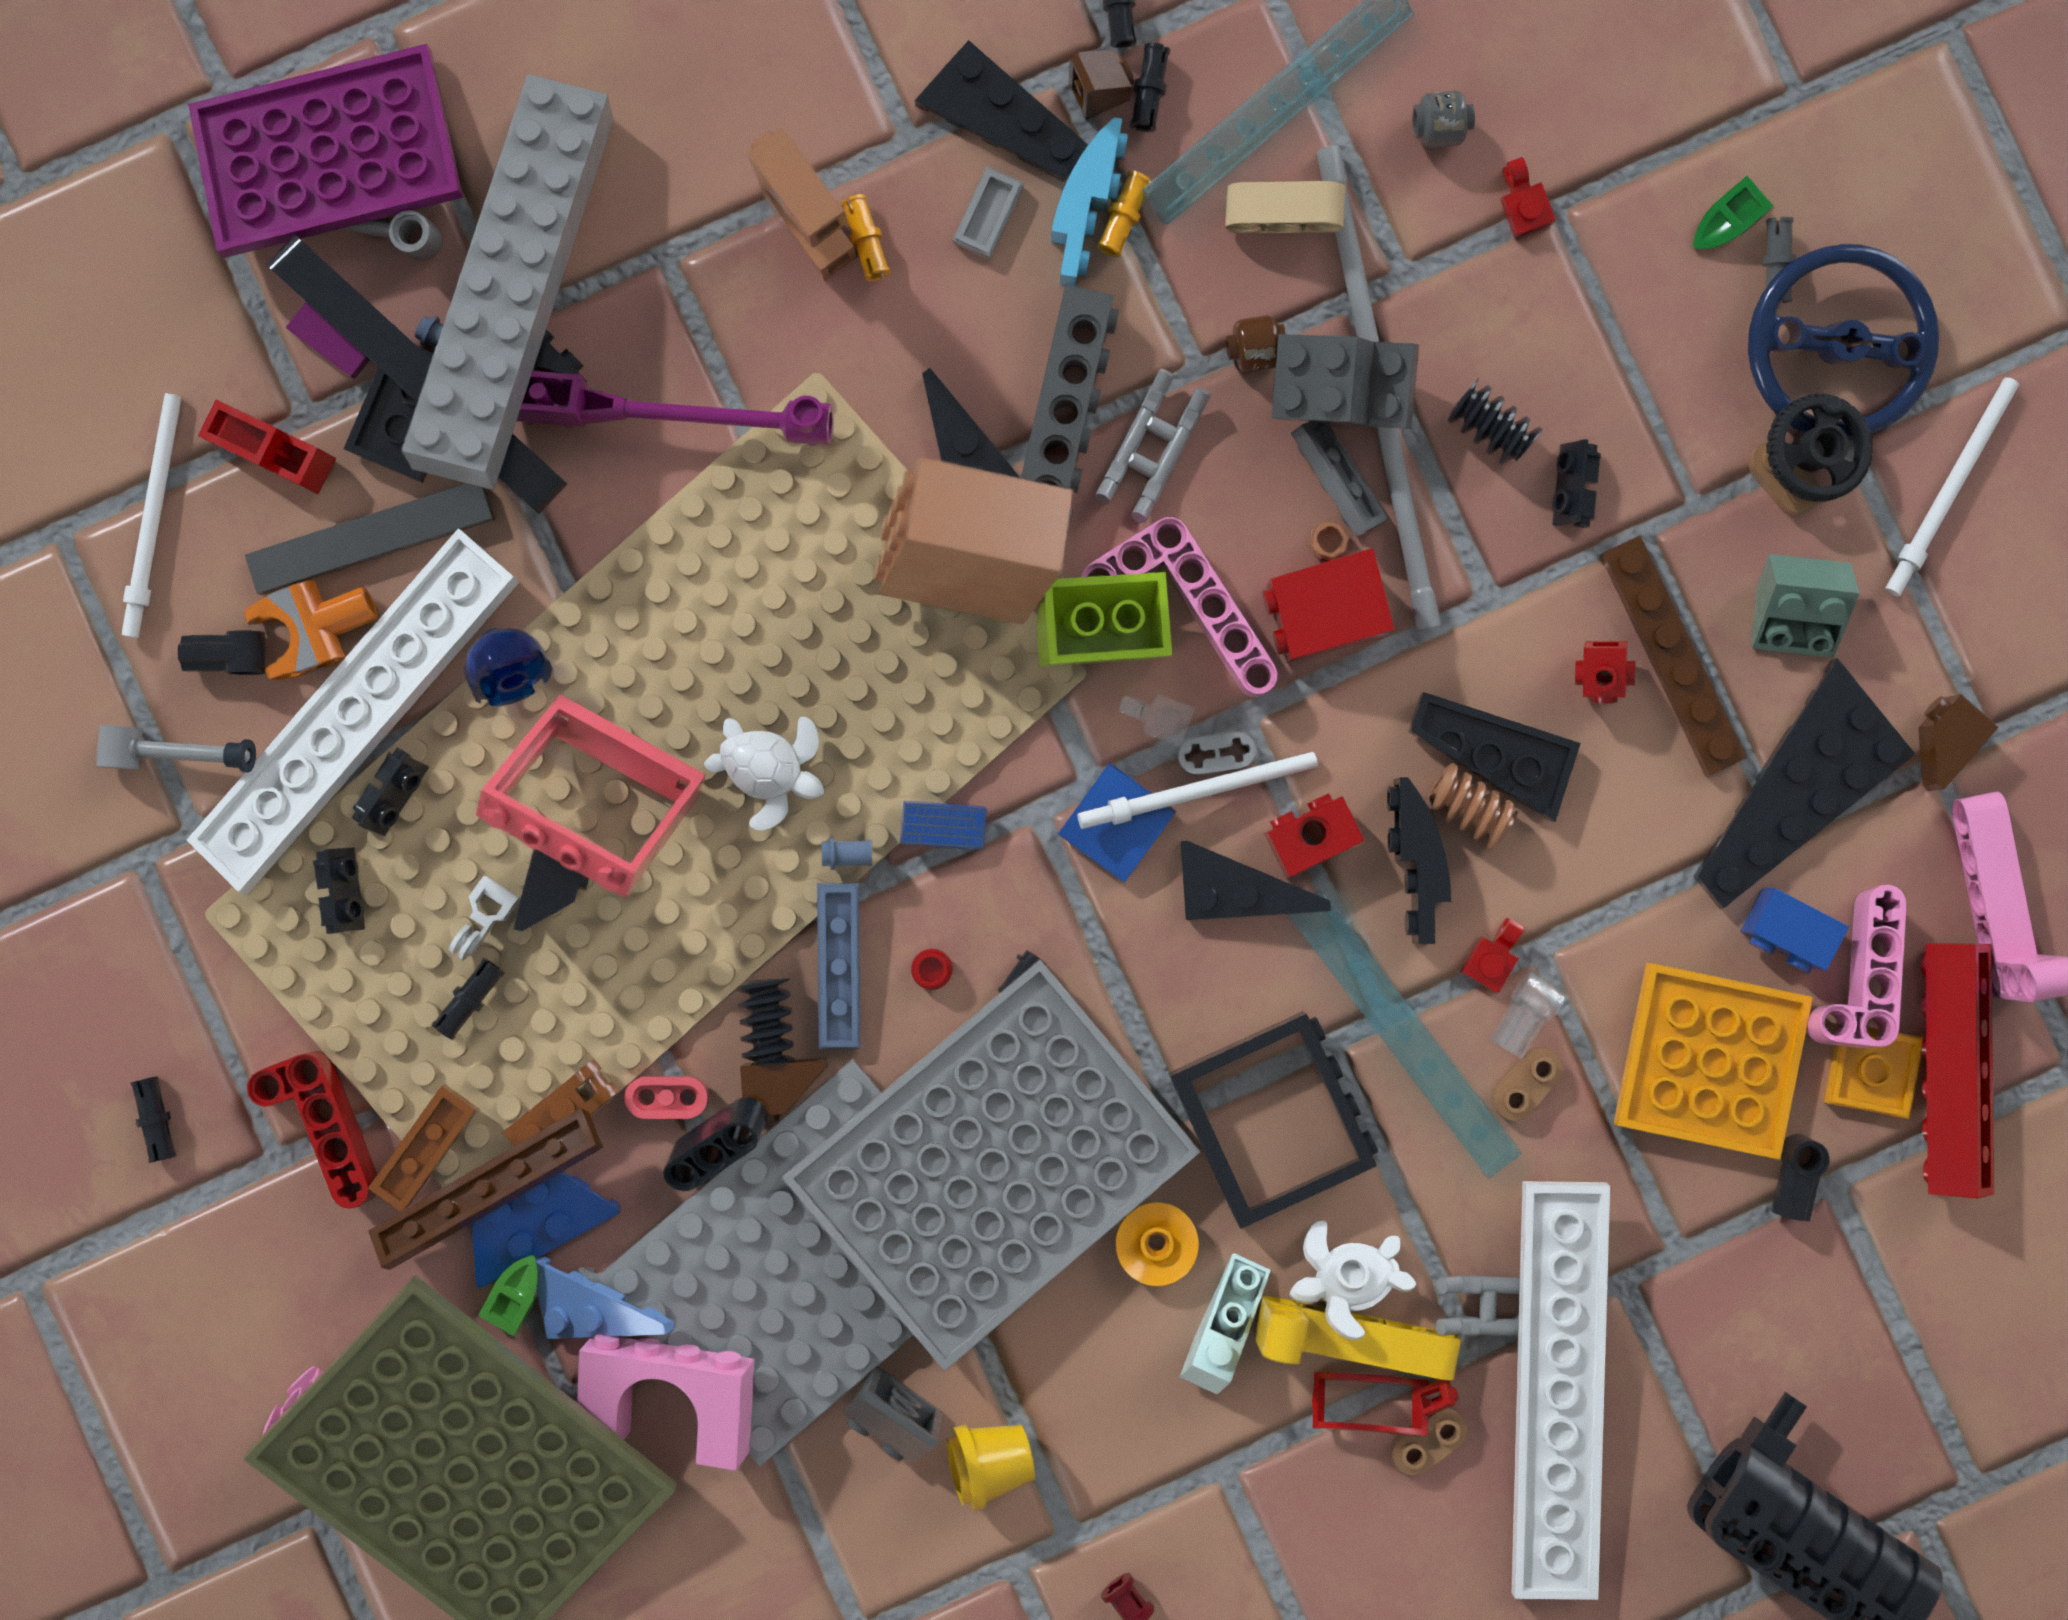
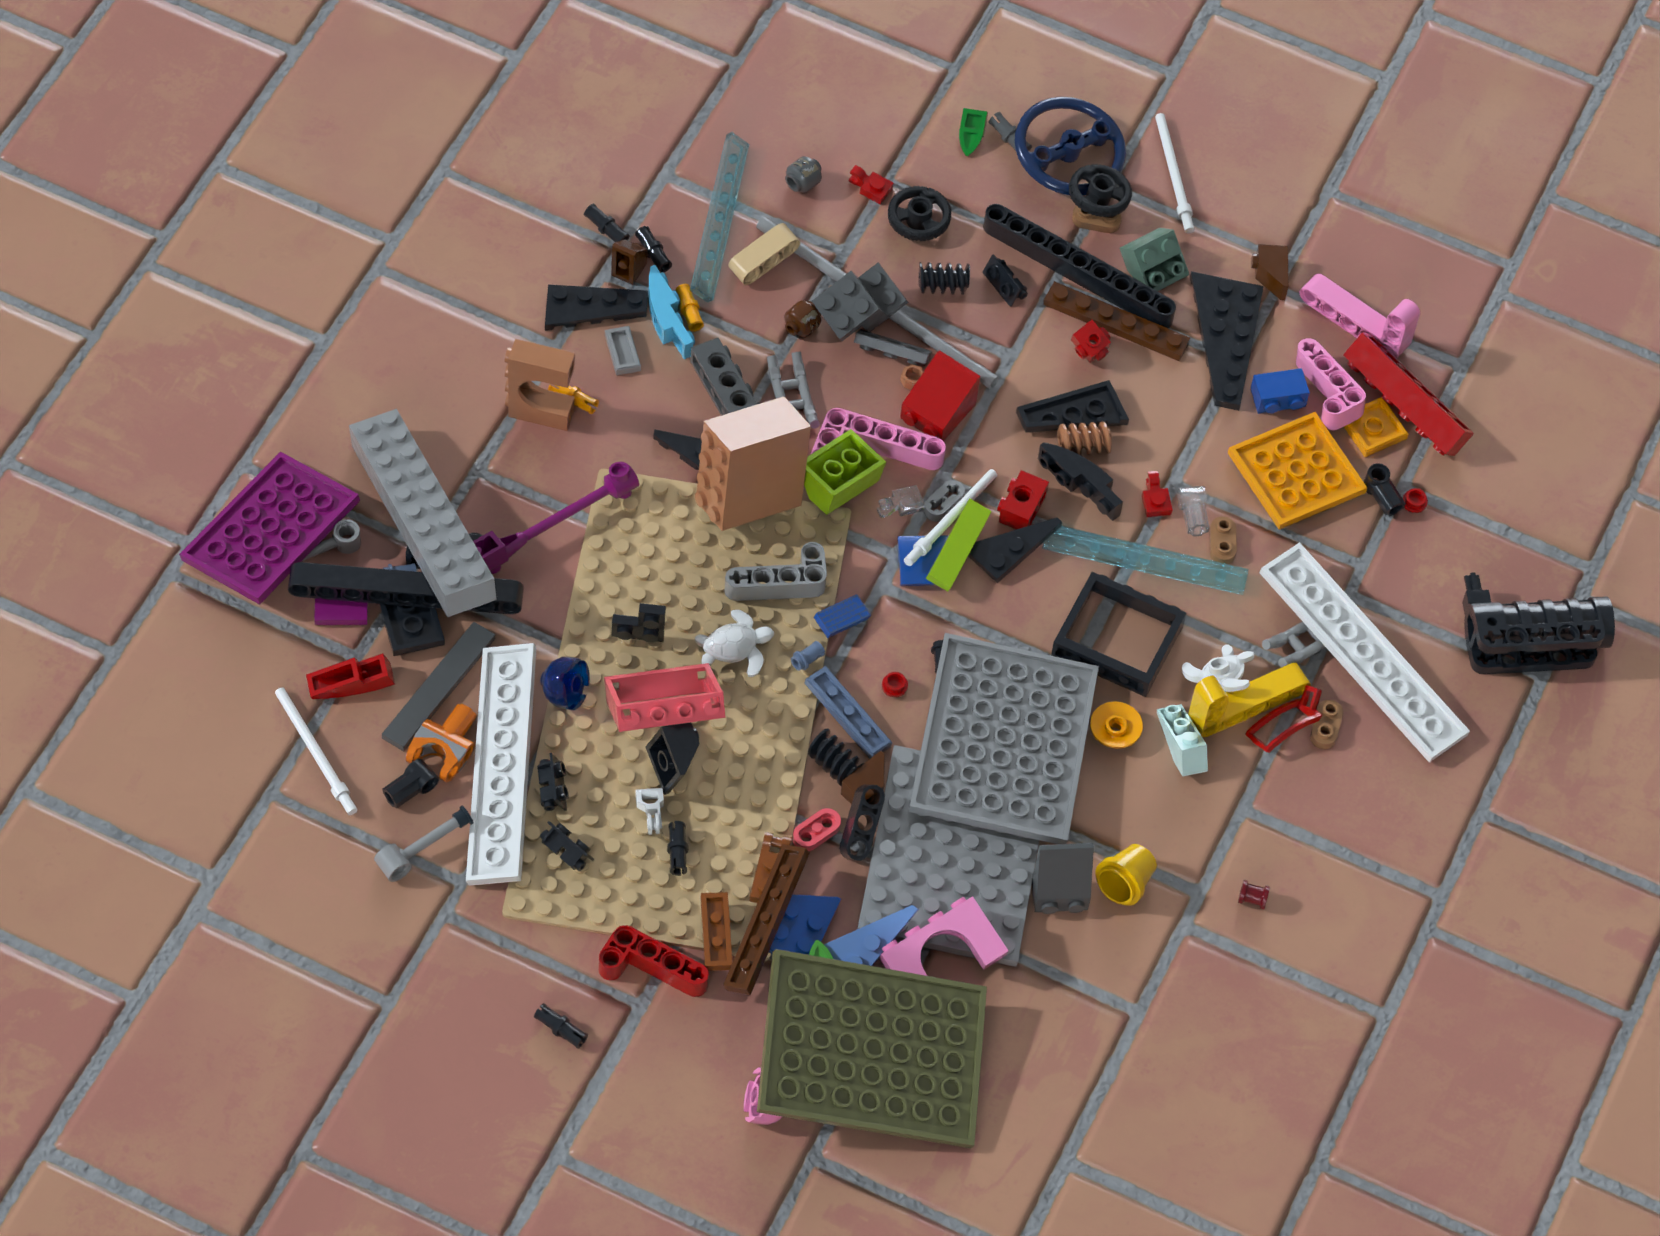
camera: 45 degrees left, 30 degrees down
(668, 661) = (647, 626): none -> black plate
(895, 712) = (775, 576): none -> light grey beam
(1171, 840) = (958, 545): none -> lime tile
(1517, 276) = (918, 213): none -> black wheel
(1696, 518) = (1078, 265): none -> black beam
(1829, 1220) = (1415, 500): none -> red plate

